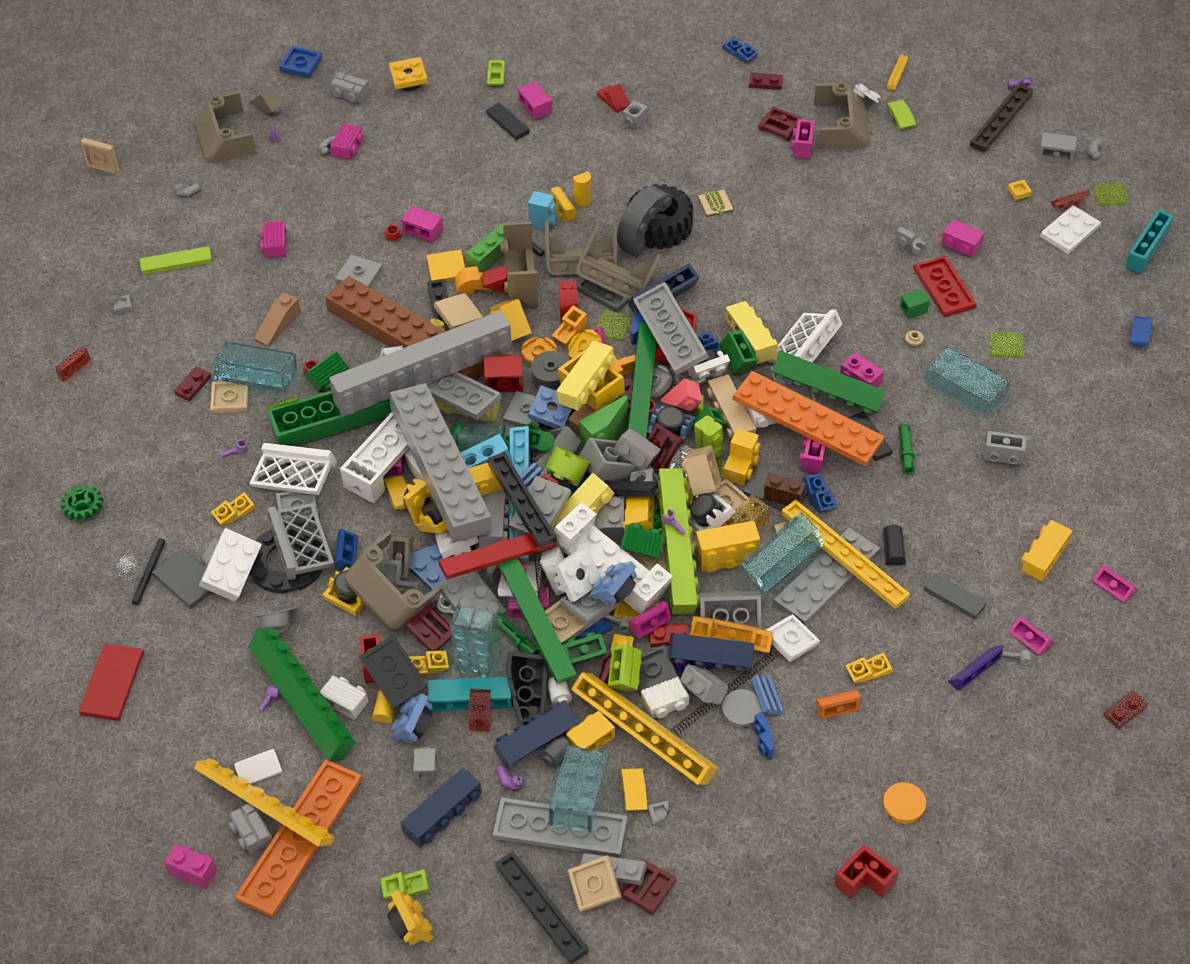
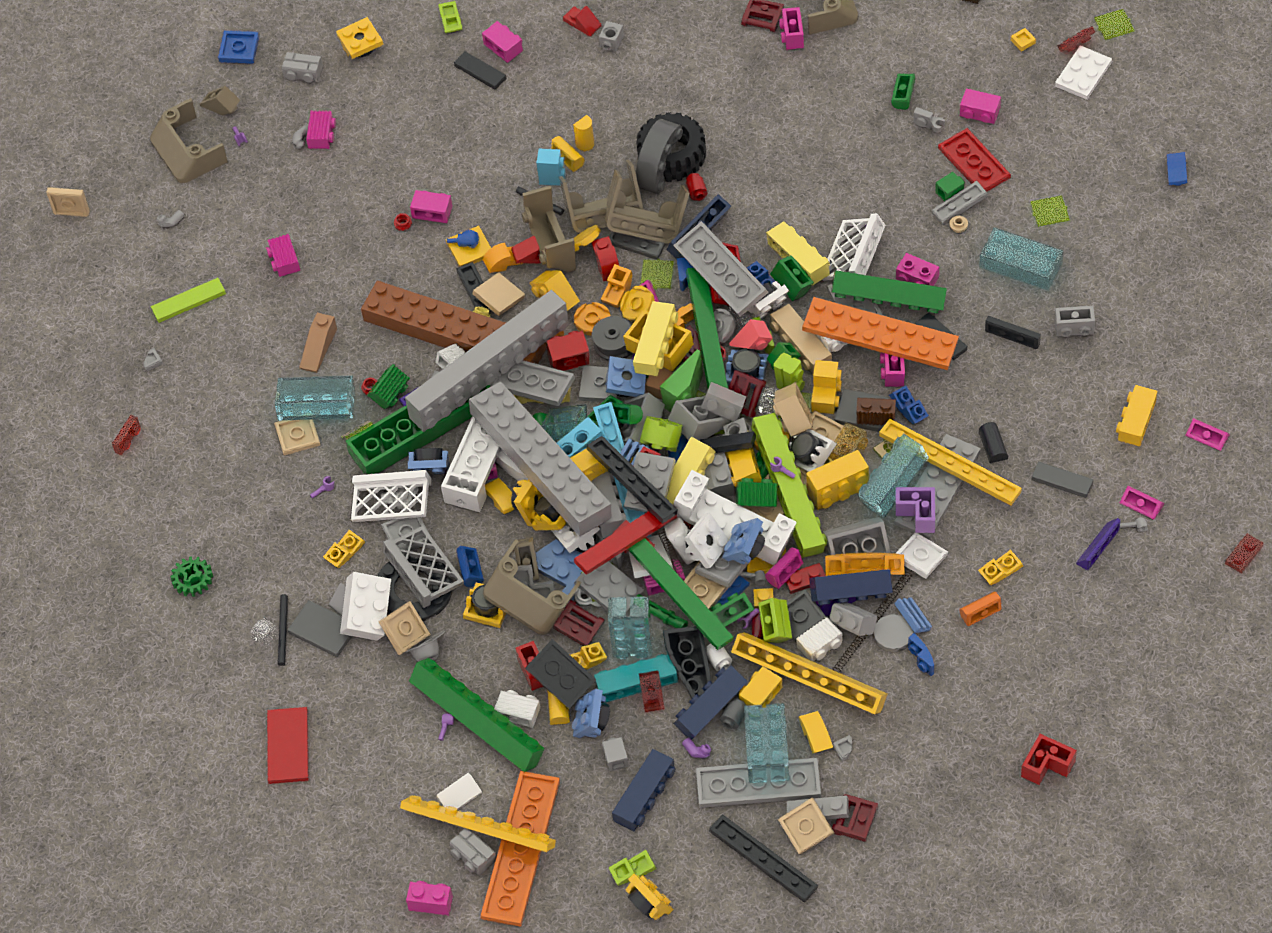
camera: 10 degrees left, 5 degrees up
(192, 383) = (255, 428): dark red plate -> none
(260, 594) = (404, 628): none -> tan tile
(339, 443) = (429, 459): none -> medium blue piece
(360, 269) = (382, 269): light grey plate -> none
(445, 258) = (467, 238): none -> blue piece
(486, 251) = (508, 220): bright green brick -> none
(553, 278) = (586, 236): none -> yellow tile
(599, 661) = (748, 618): none -> medium lavender hand
(673, 256) = (696, 187): none -> red brick
(715, 203) = (721, 118): piece -> none
(801, 586) = (917, 503): none -> medium lavender brick
(893, 211) = (903, 91): none -> green brick
(904, 803) = (1064, 686): light orange tile -> none
(907, 455) = (982, 348): green pin -> none
(920, 319) = (959, 203): none -> light grey tile
(940, 446) = (1012, 332): none -> black tile
(1149, 241) = (1164, 70): teal brick -> none

